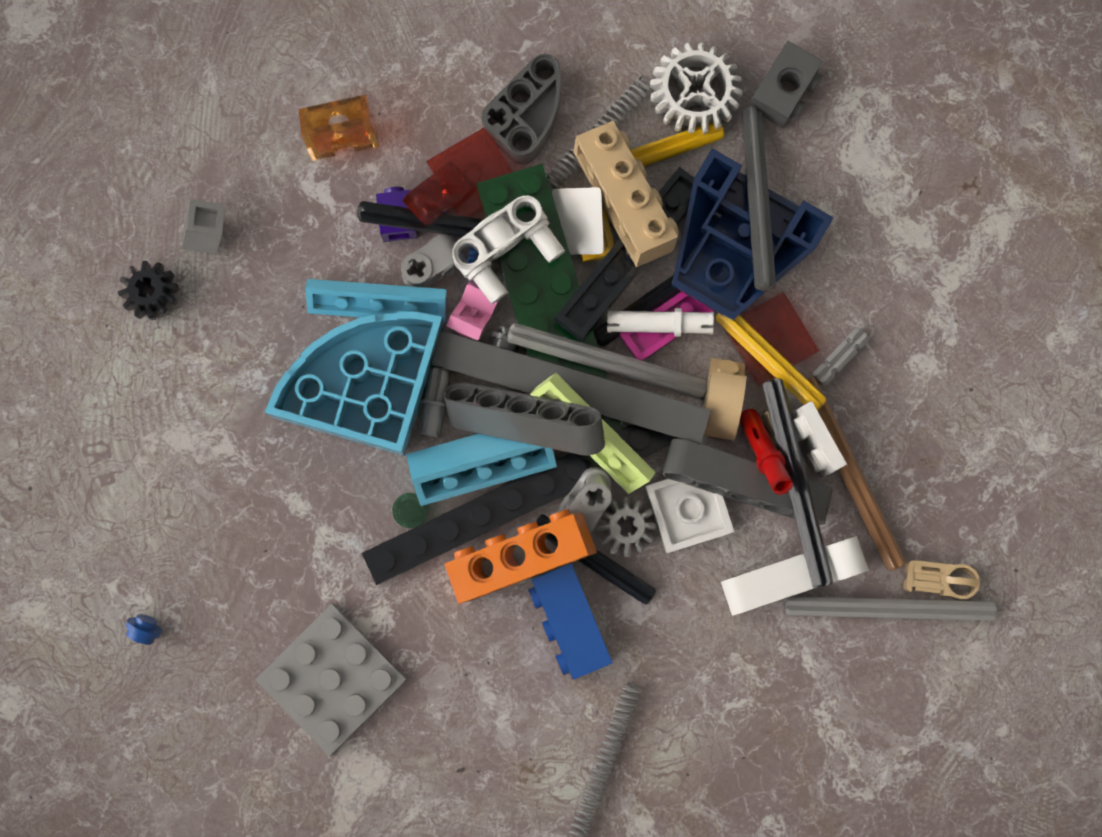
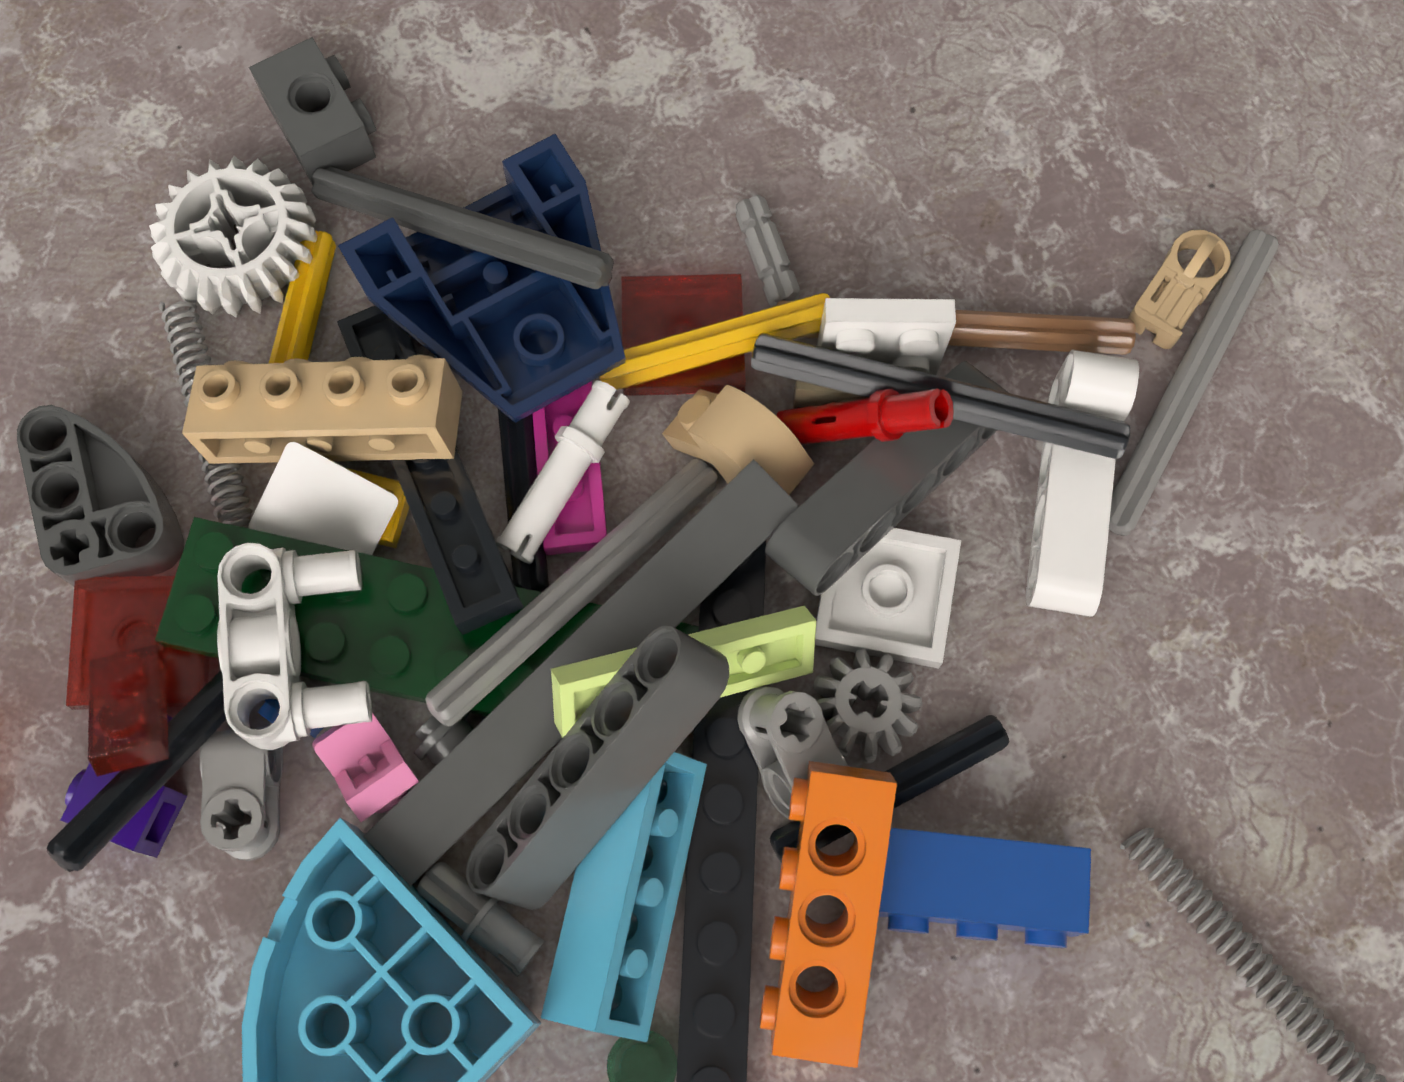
camera: 60 degrees left, 10 degrees down
(369, 299) = (222, 951): medium azure plate -> none

